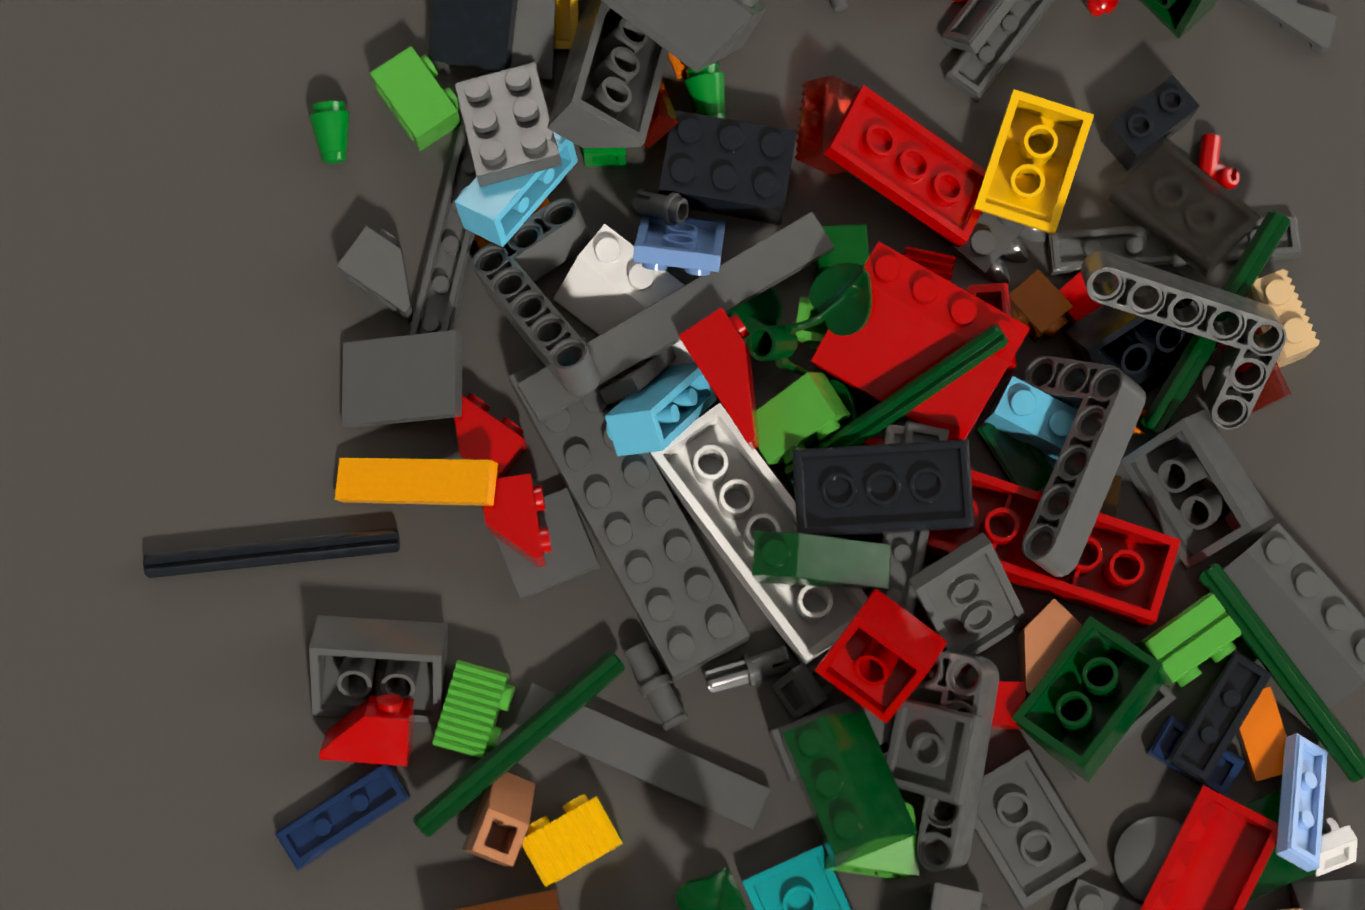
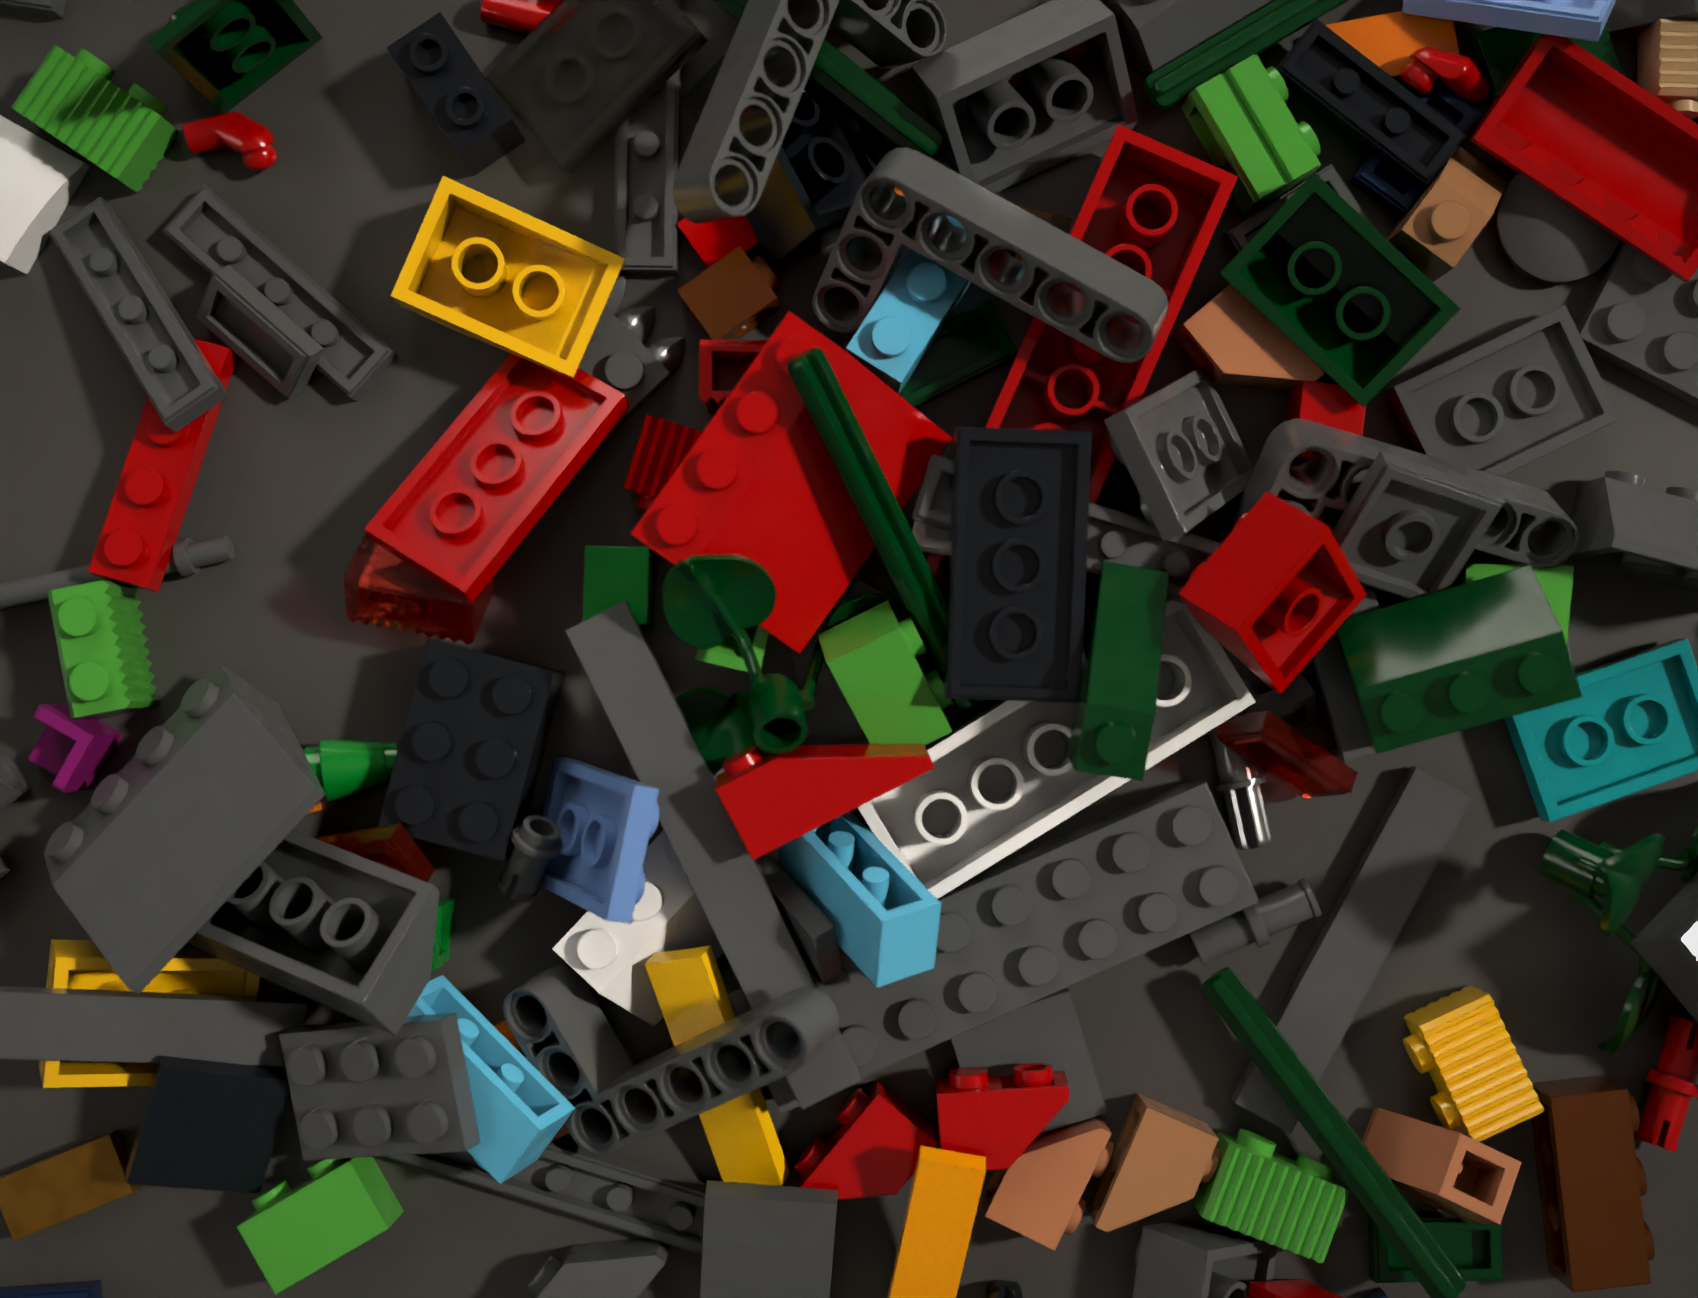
camera: 85 degrees left, 10 degrees up
(443, 850) = (1471, 1247): none -> dark green tile
(471, 555) = (1046, 1183): none -> nougat slope
(489, 630) = (1153, 1165): none -> medium nougat slope
(507, 350) = (691, 1004): none -> yellow tile
(771, 692) = (1286, 755): none -> clear red tile
(1152, 779) = (1448, 215): none -> medium nougat slope
(1249, 771) = (1450, 68): none -> red arm

